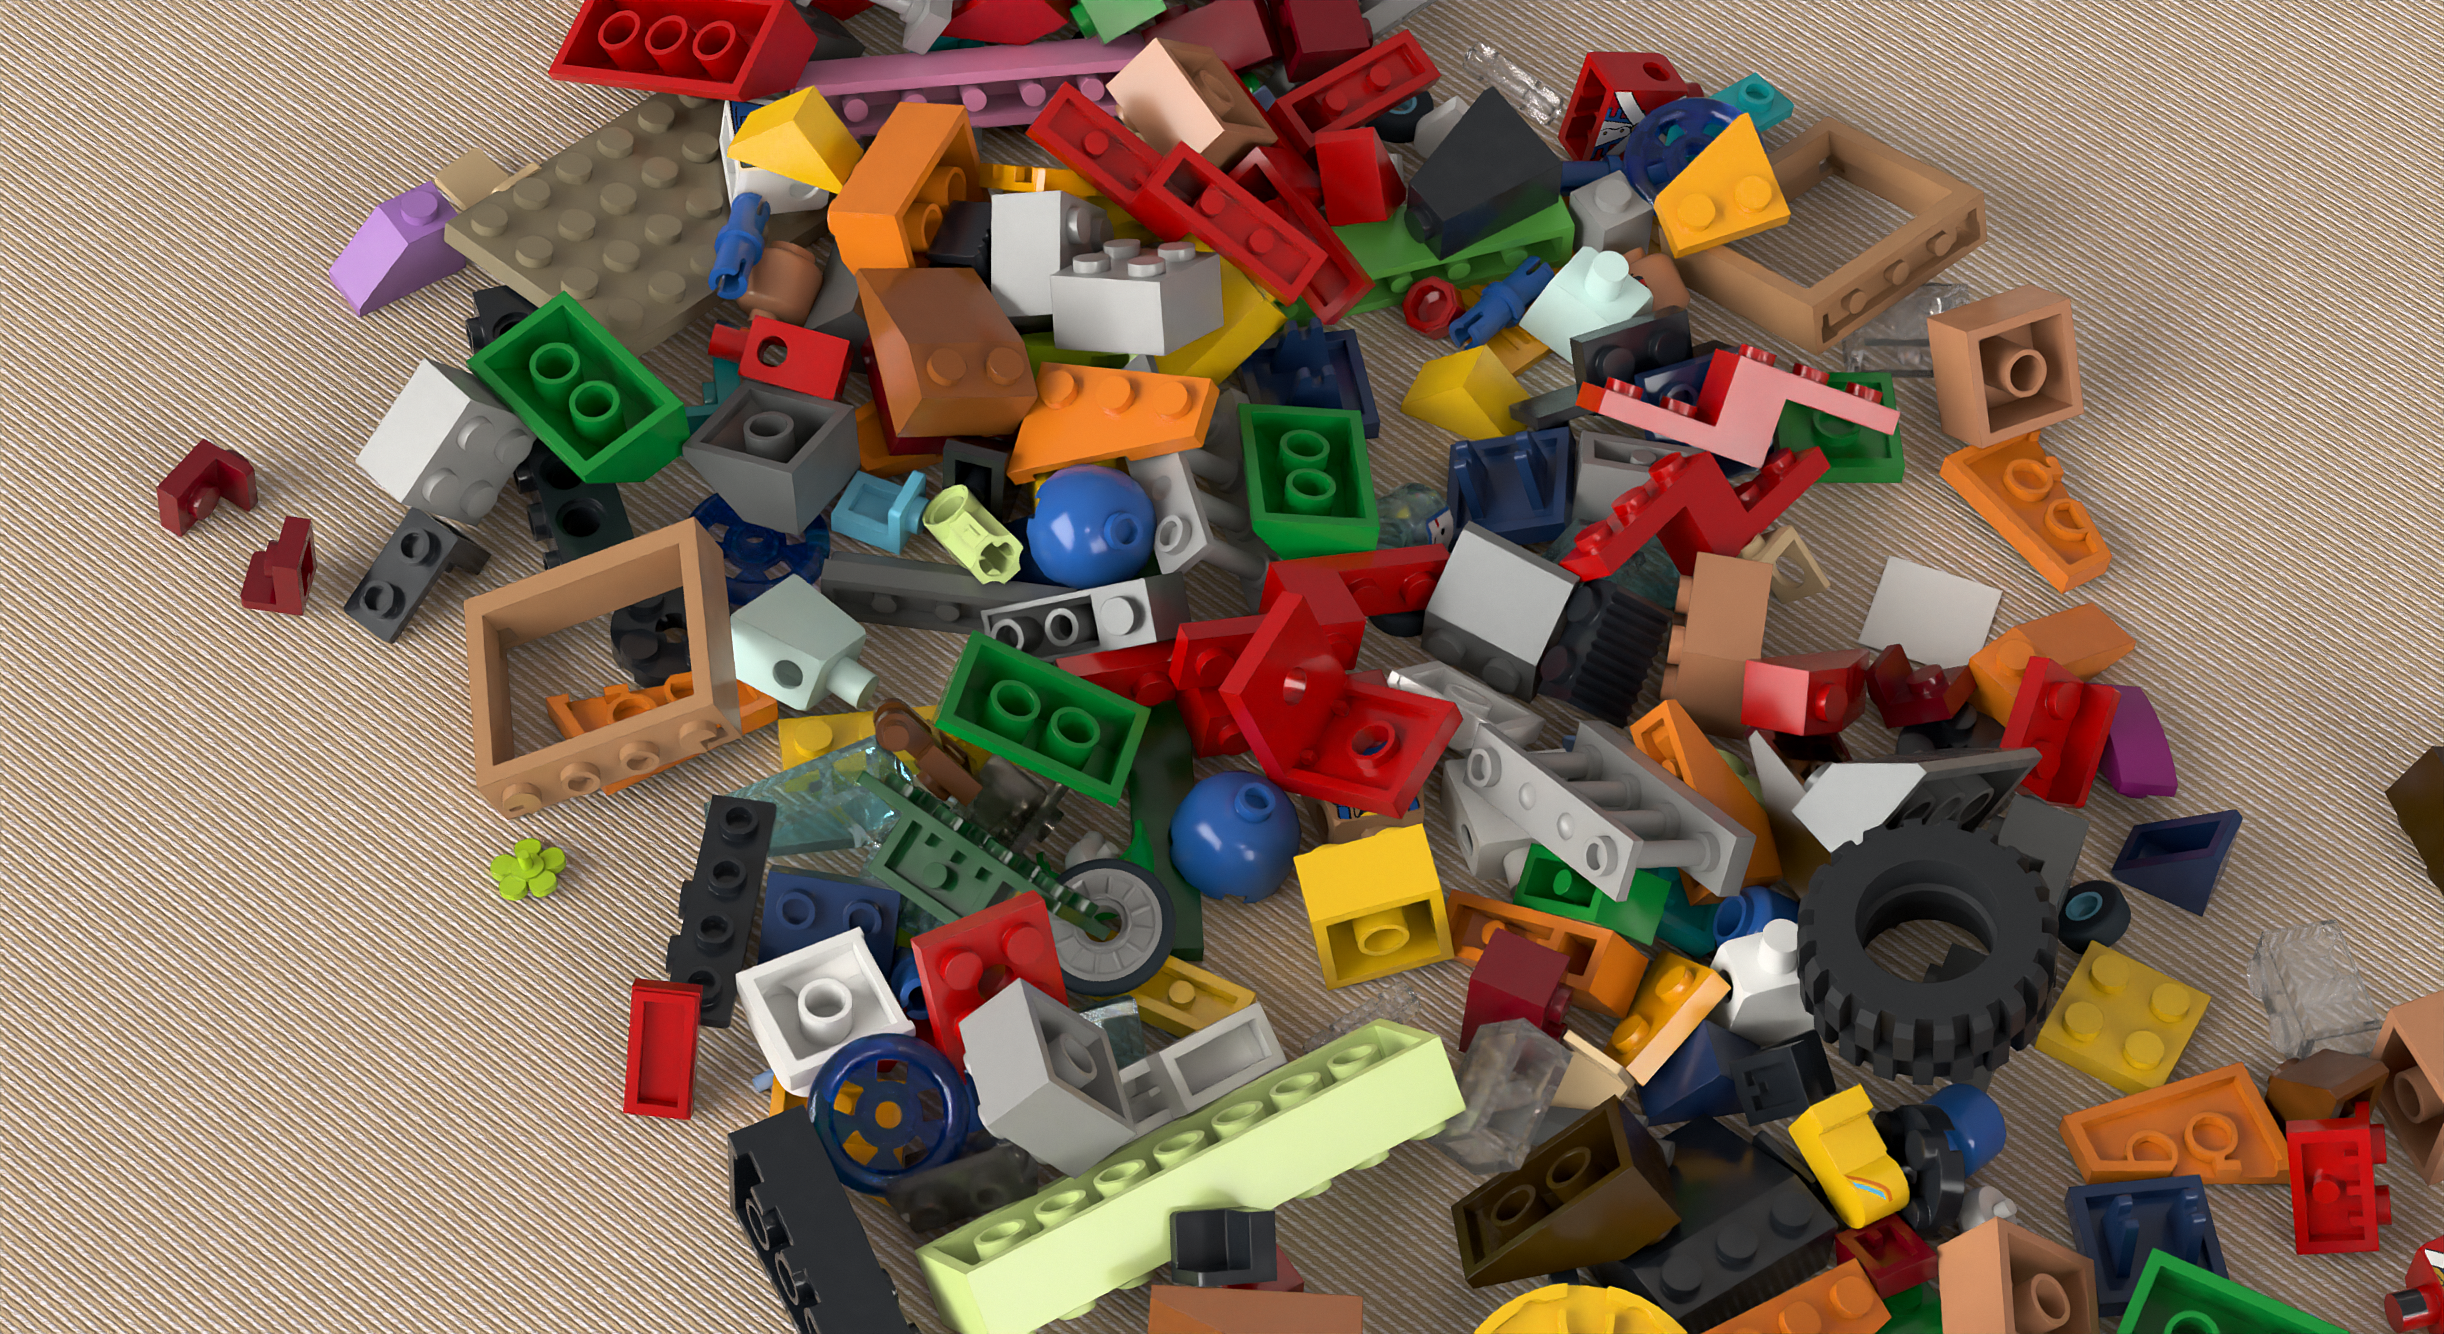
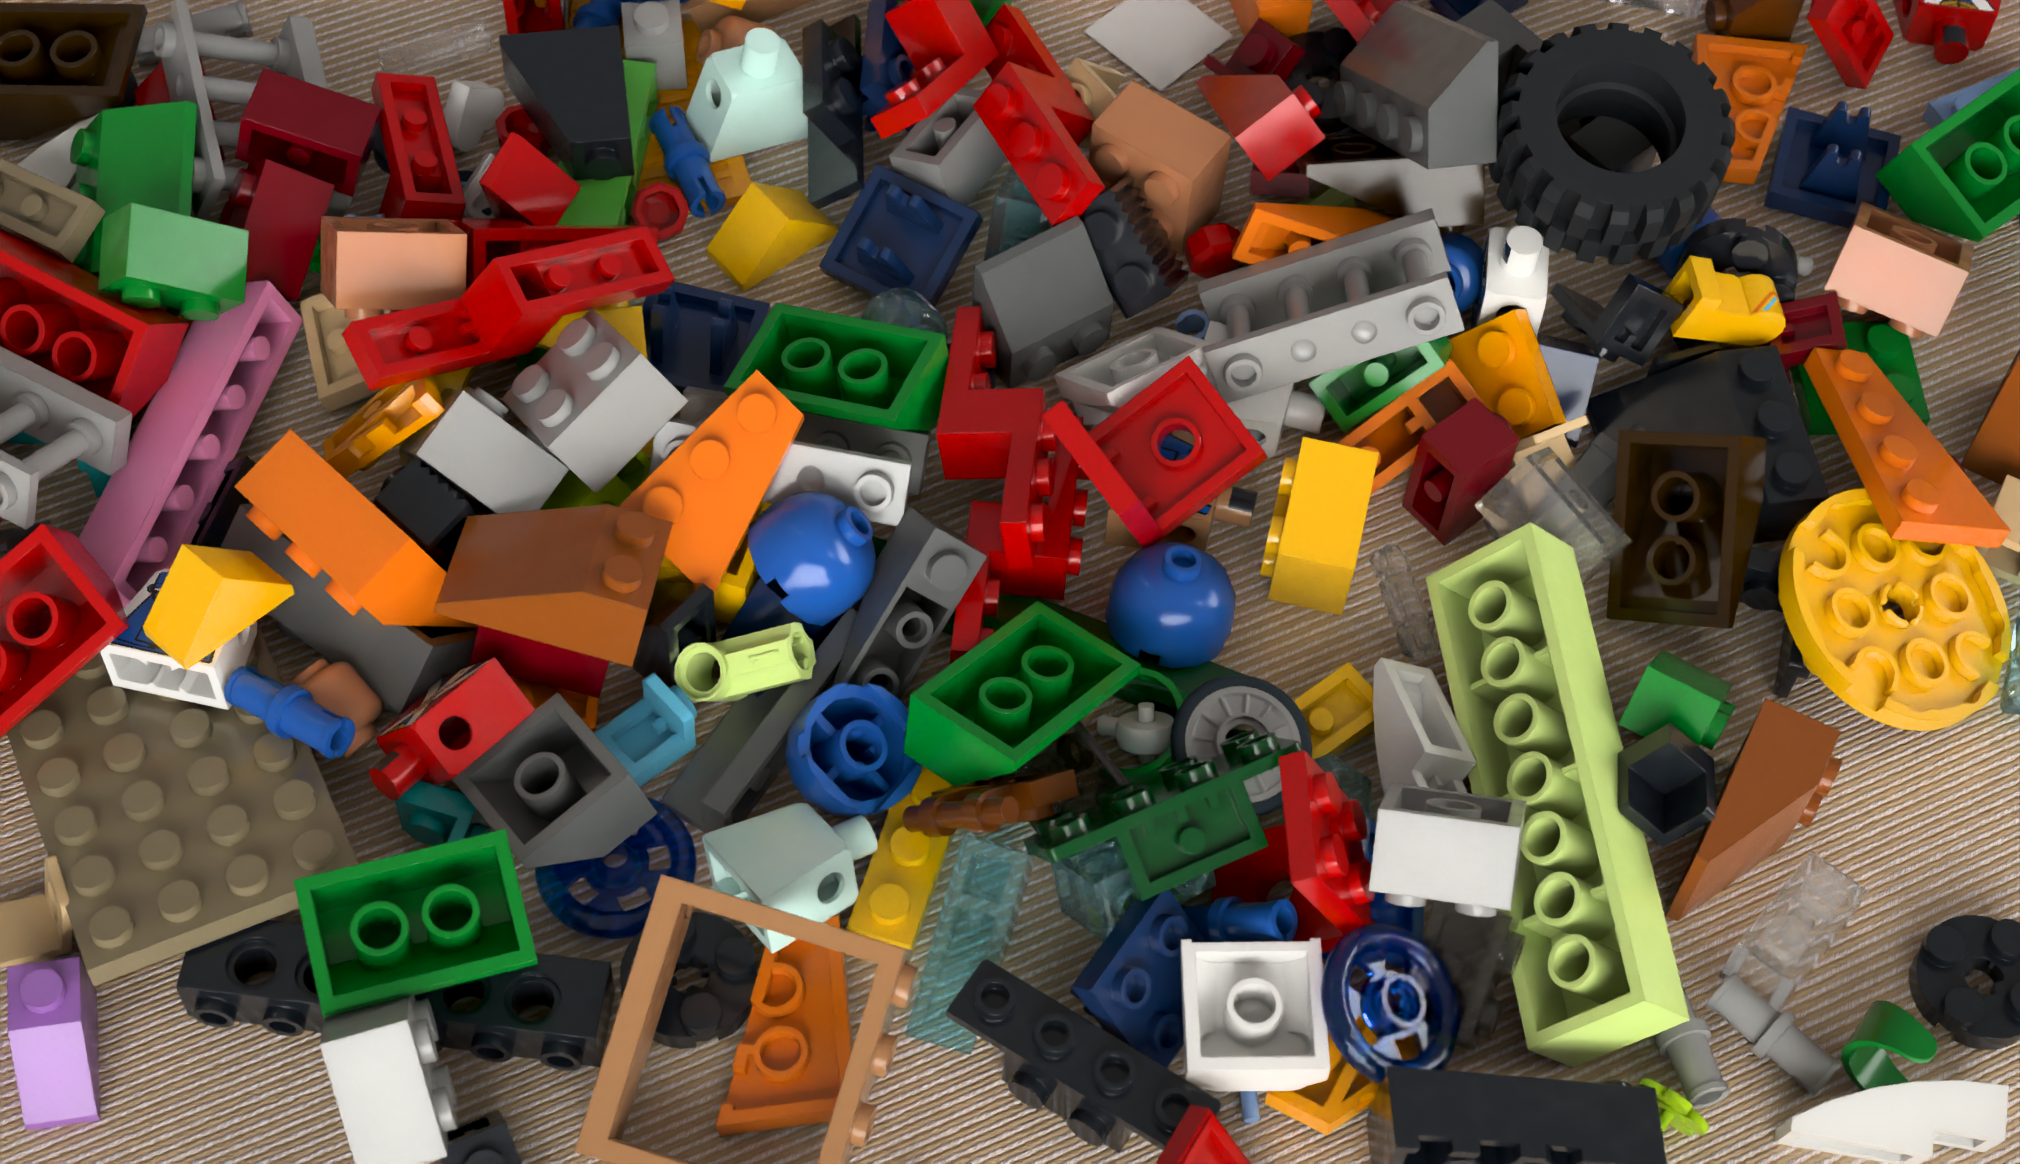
camera: 65 degrees left, 5 degrees up
(921, 635) = (850, 751): none -> blue cylinder
(1347, 1248) = (1682, 696): none -> green brick

